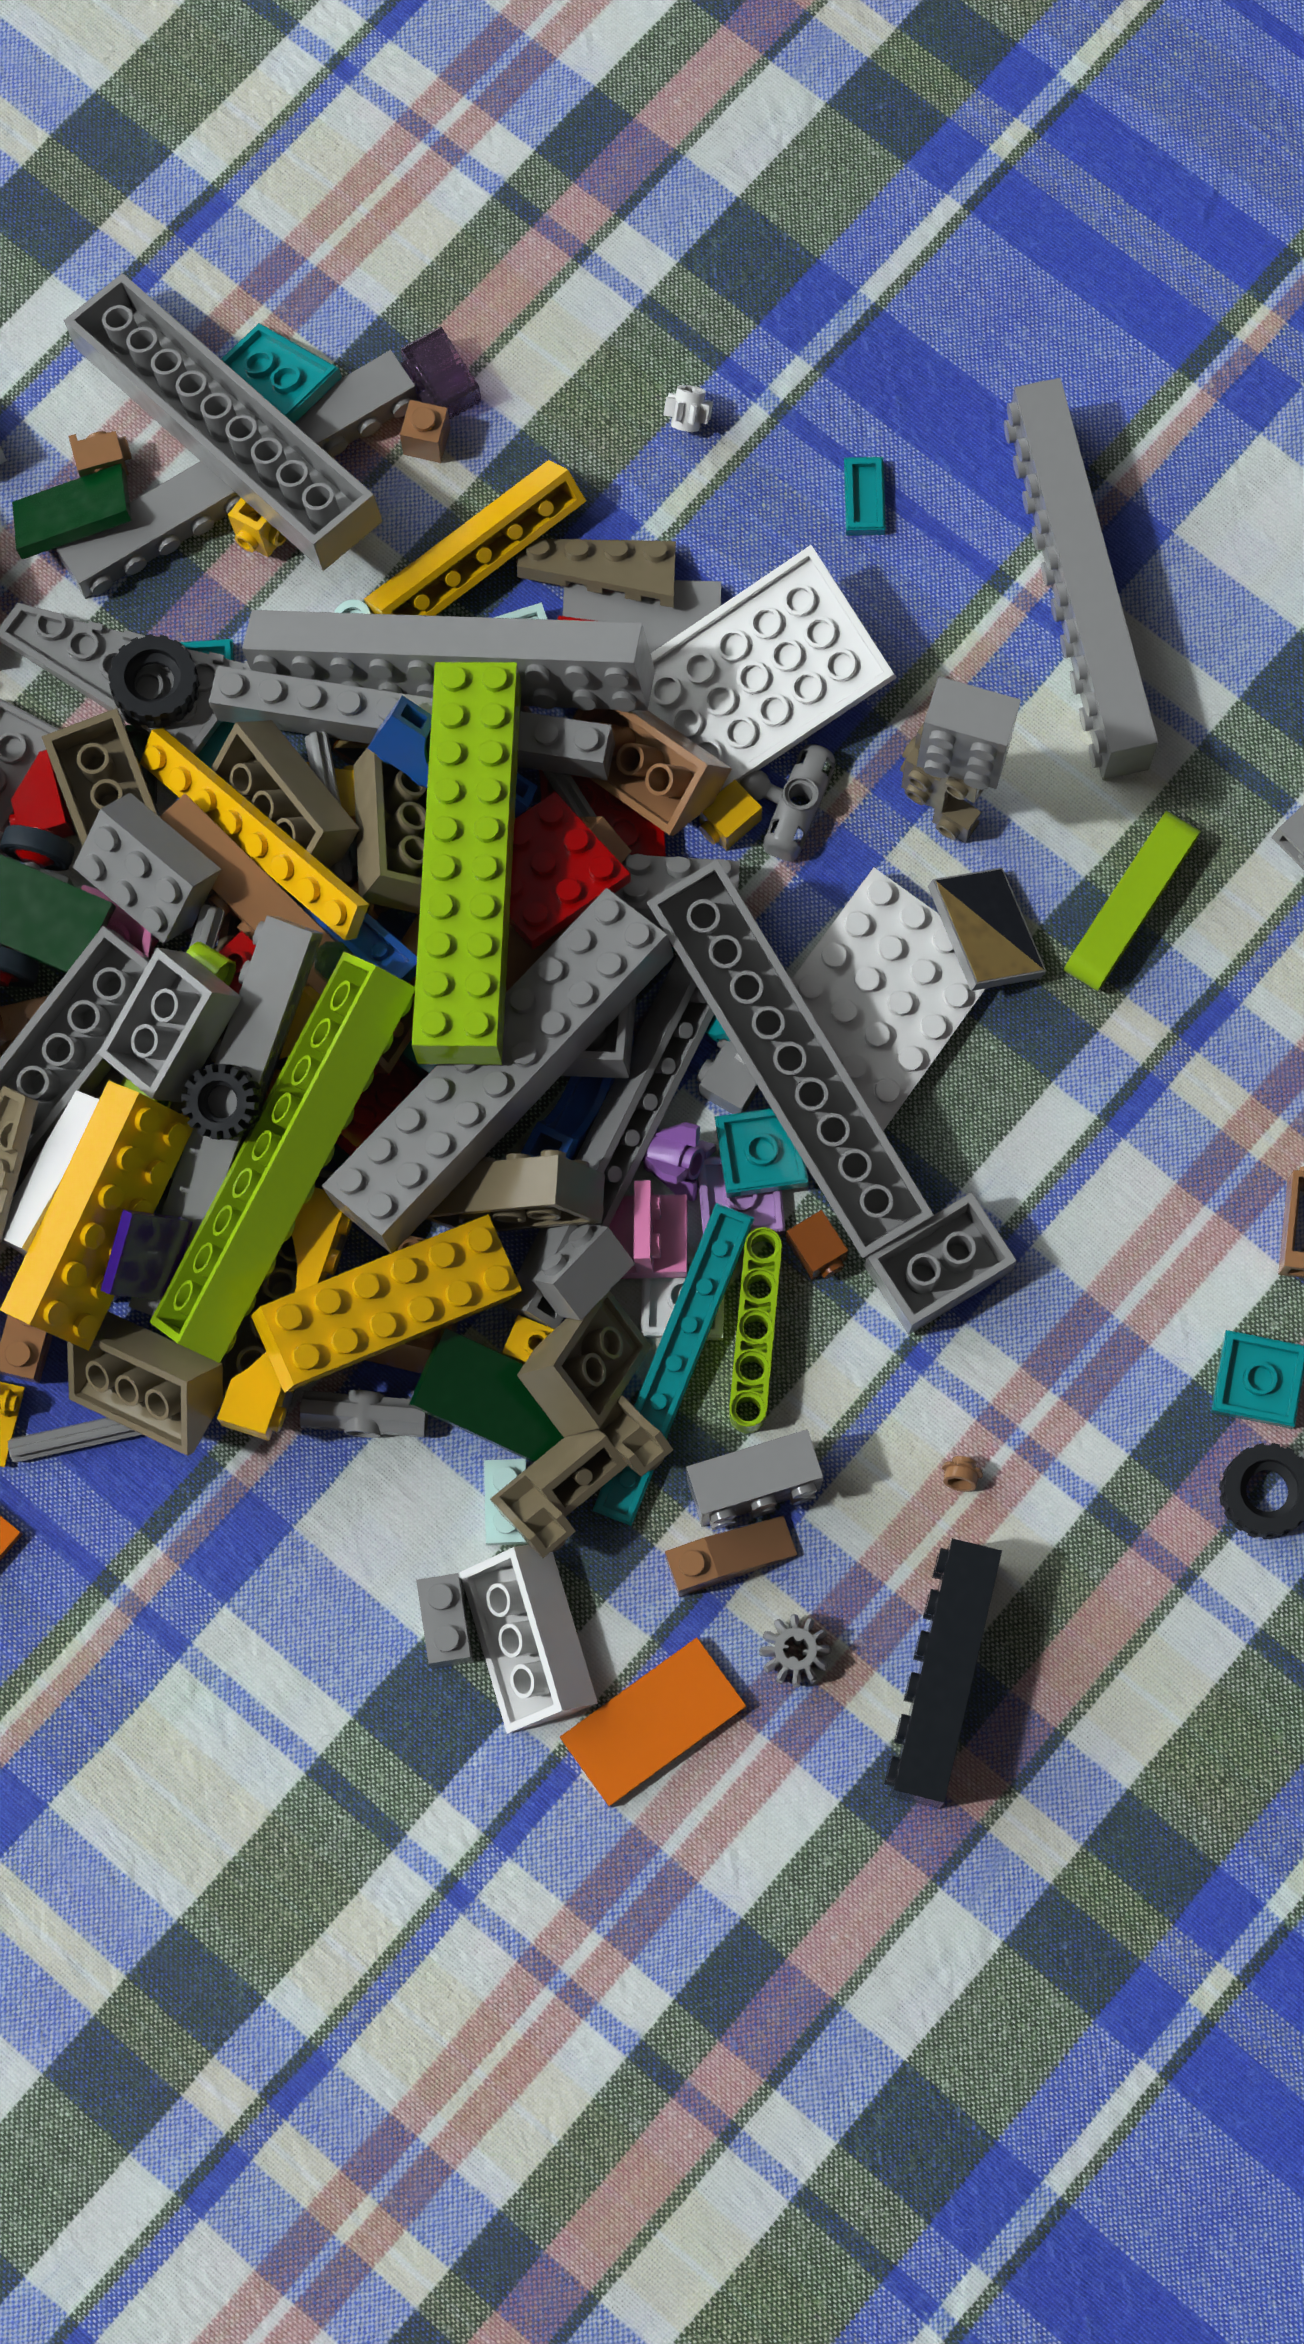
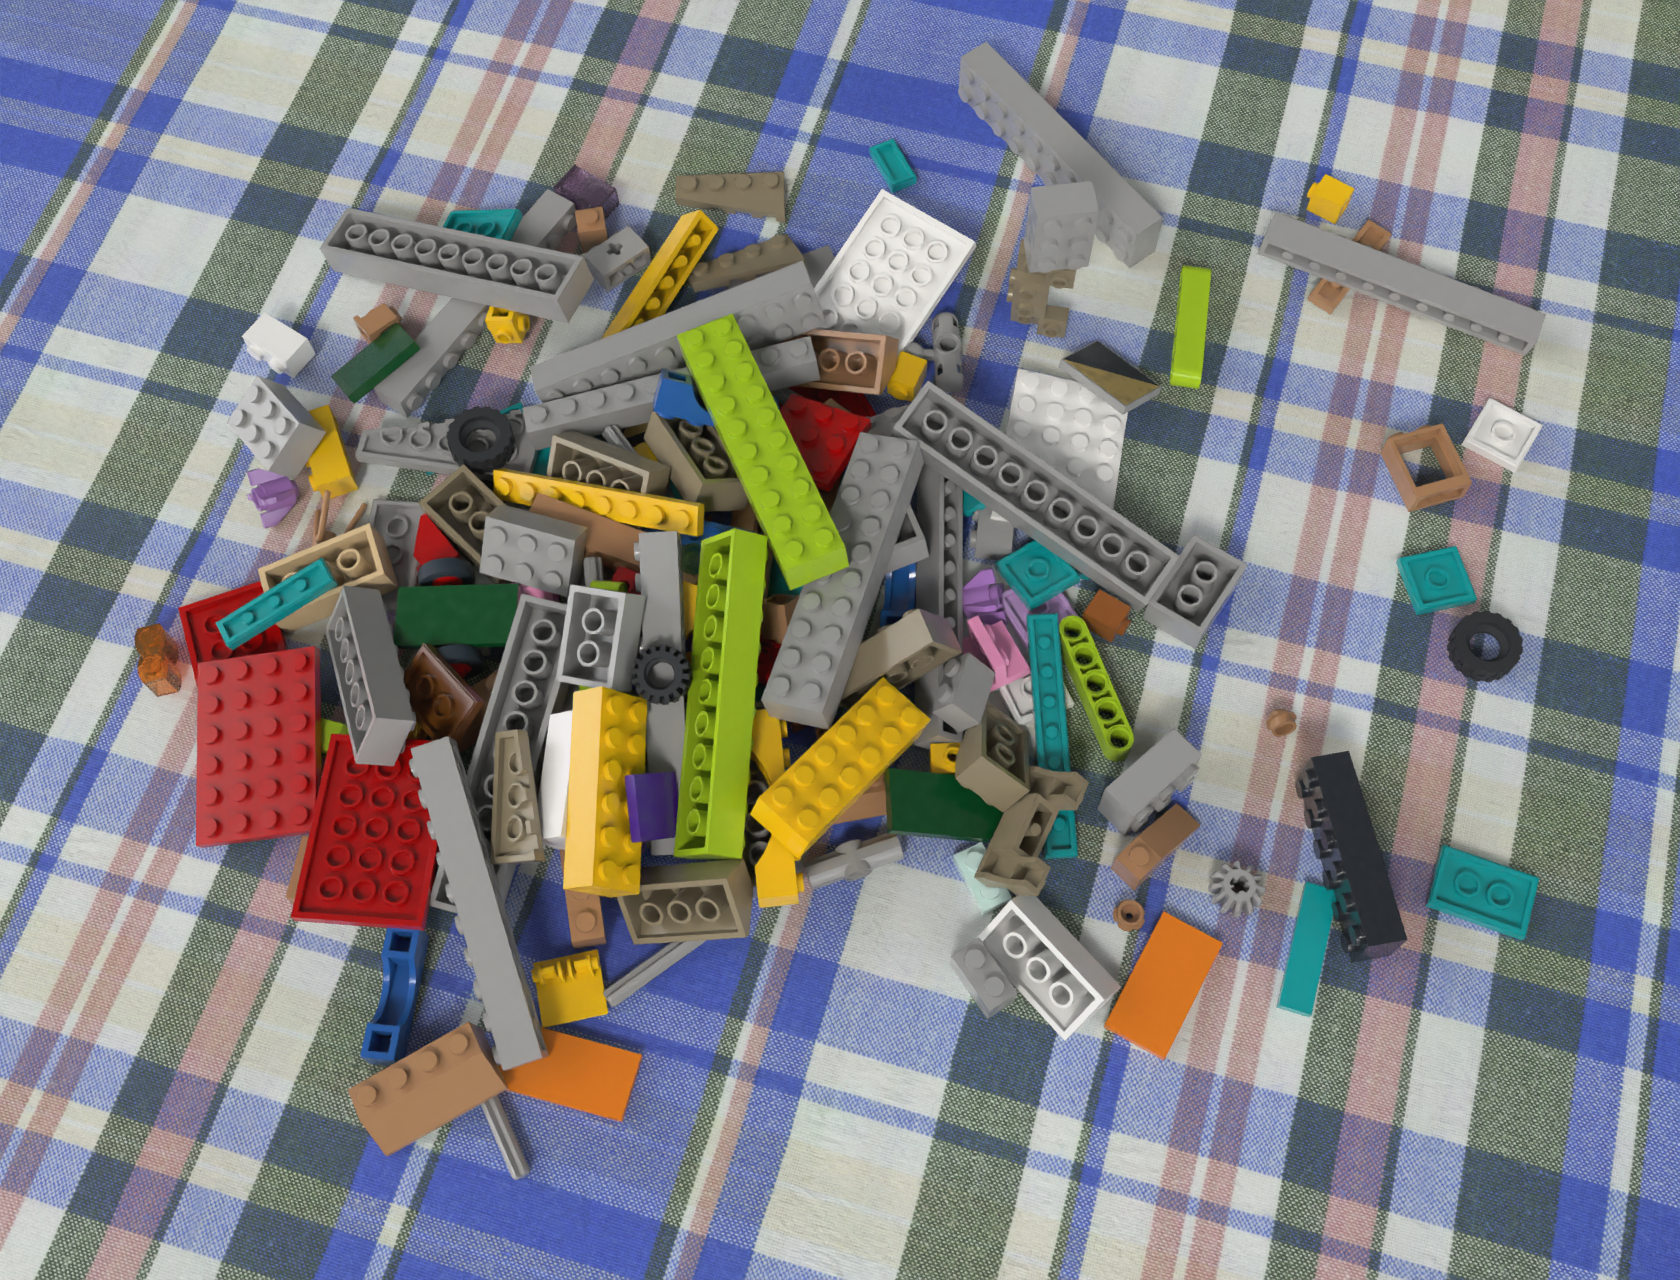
camera: 25 degrees left, 10 degrees down
(401, 1075) = (777, 615): none -> medium nougat brick
(428, 502) = (618, 258): none -> light grey brick
(646, 454) = (740, 192): none -> dark tan wing
(657, 1635) = (1134, 909): none -> medium nougat plate
(688, 408) = (756, 154): white gear -> none
(843, 1758) = (1307, 950): none -> teal tile
(1090, 1785) = (1482, 892): none -> teal tile

